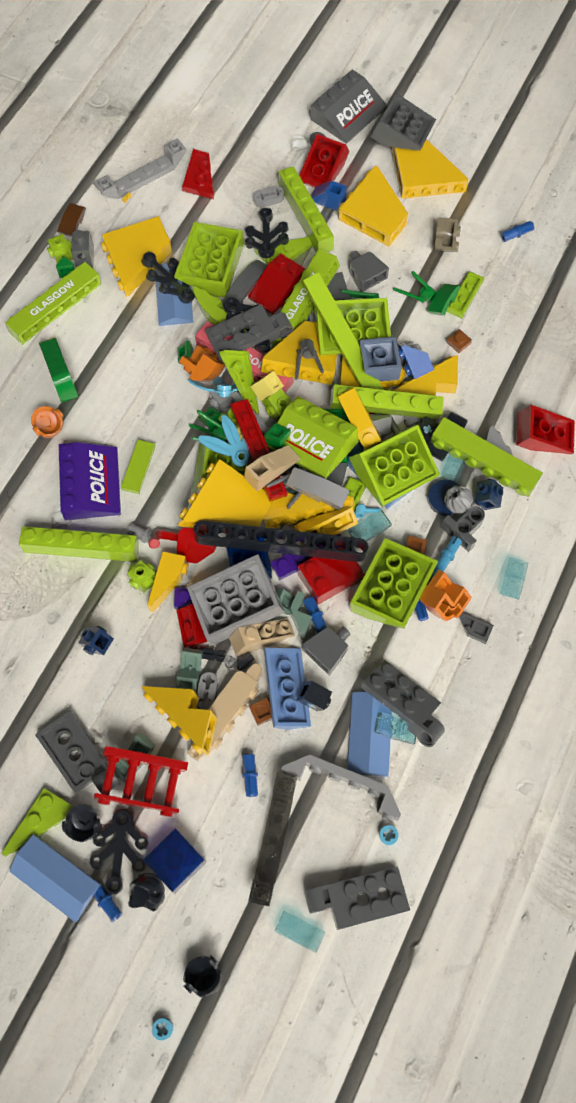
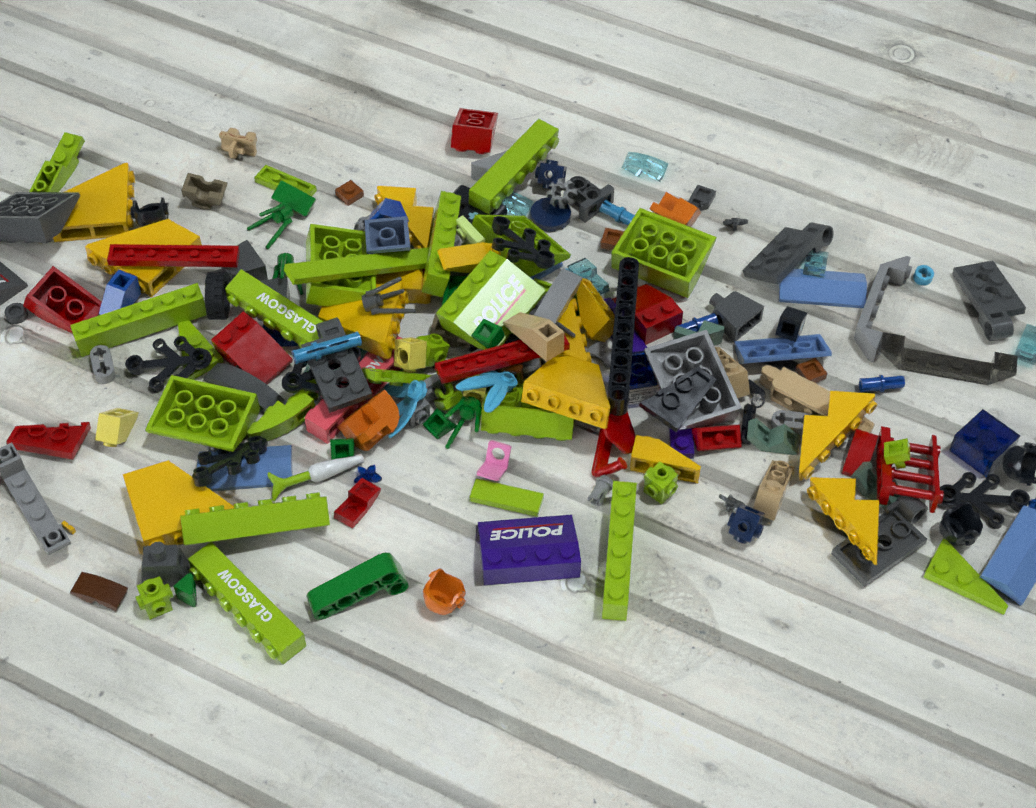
camera: 90 degrees left, 15 degrees down
(88, 729) = (855, 517): none -> yellow slope
(114, 298) = (254, 520): none -> lime brick
(122, 634) = (730, 502): none -> dark grey plant
(135, 667) = (773, 488): none -> tan slope
(138, 367) = (358, 503): none -> red slope
(144, 764) = (897, 452): none -> lime tile
(163, 371) = (368, 474): none -> clear blue plant
(164, 337) = (316, 473): none -> piece
(164, 455) = (493, 467): none -> bright pink bracket
(170, 745) = (860, 451): none -> red slope
(207, 583) = (679, 400): none -> black wing
(209, 209) = (115, 426): none -> light yellow slope
(248, 311) = (352, 340): none -> dark azure pin
(328, 244) = (215, 296): none -> black tyre
(363, 219) = (173, 255): none -> red plate
(372, 459) = (541, 257): none -> black plant
(392, 422) = (467, 232): none -> yellowish green wing
(415, 203) = (150, 213): none -> black cap
(446, 657) = (735, 221): none -> dark grey plant
(458, 140) = (61, 166): none -> lime slope
(500, 253) = (238, 144): none -> tan hips
(517, 231) = (204, 132): blue axle -> none

